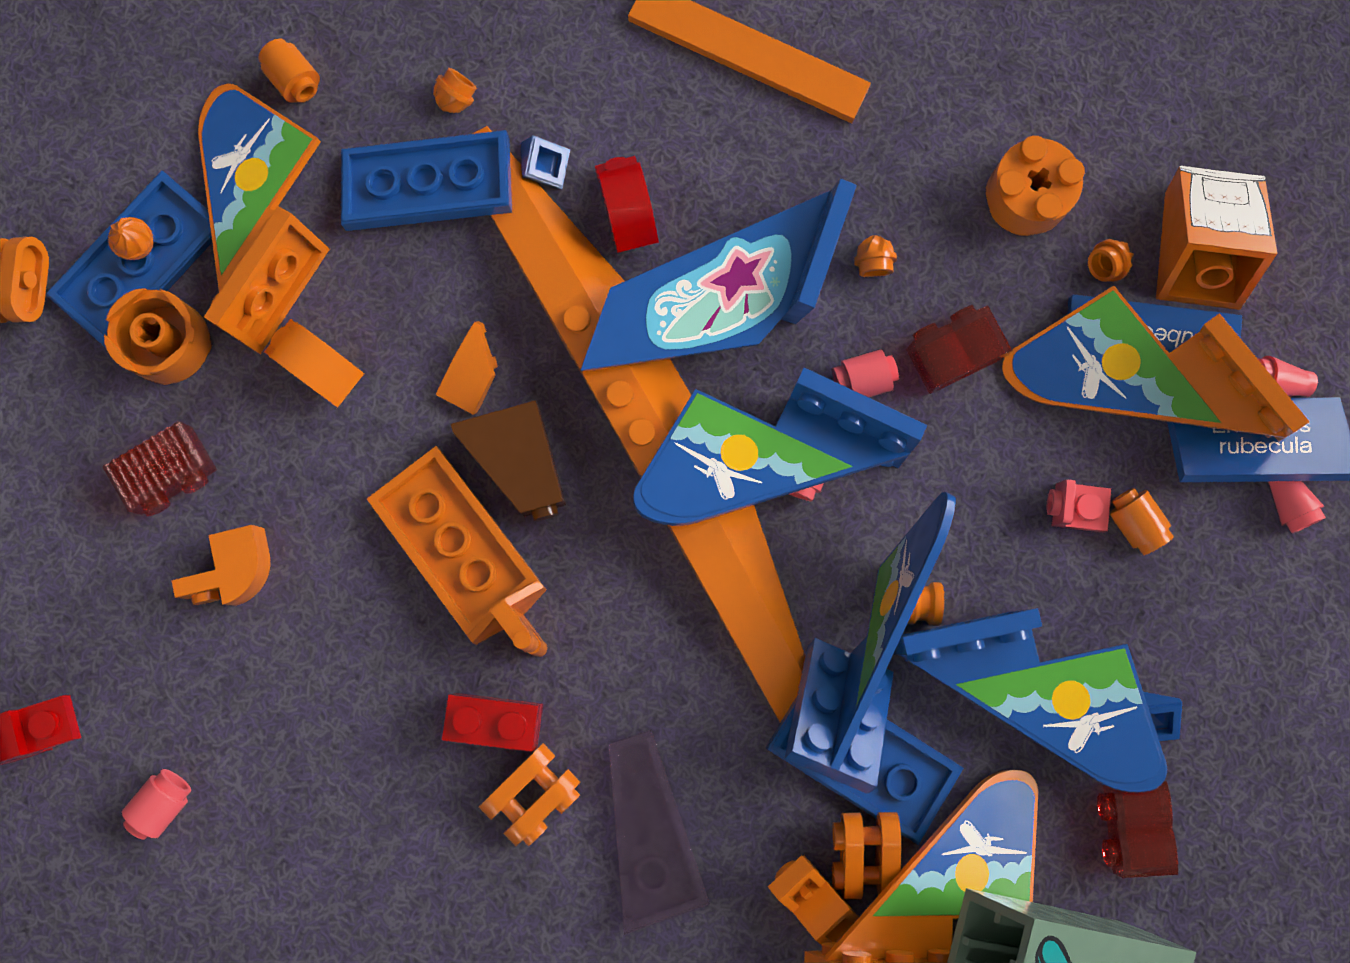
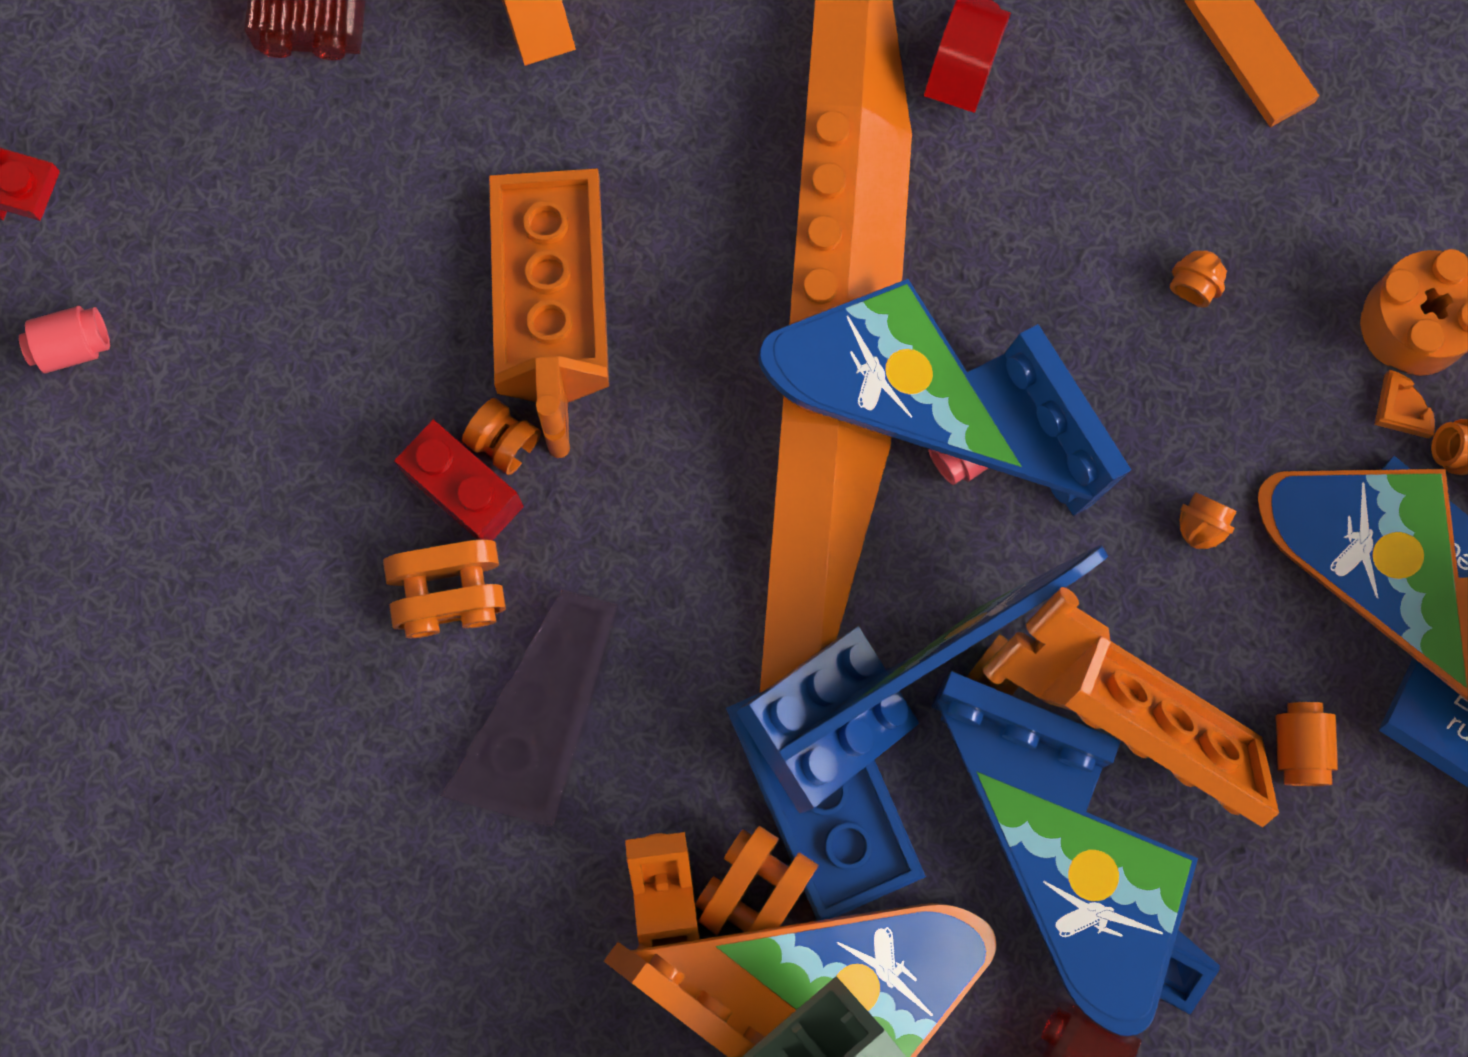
camera: 35 degrees right, 5 degrees down
(240, 569) = (311, 163): orange brick -> none
(469, 372) = (685, 119): orange slope -> none
(489, 674) = (500, 435): none -> orange wheel
(516, 456) = (673, 233): reddish brown slope -> none
(724, 291) = (1005, 198): piece -> none
(867, 373) = (1109, 390): coral brick -> none
(957, 348) = (1225, 429): clear red brick -> none
(985, 417) = (1205, 522): none -> orange plate
(1034, 577) = (1156, 718): none -> orange hinge
(1056, 256) = (1403, 407): none -> orange tile
(1079, 506) = (1247, 686): coral bracket -> none

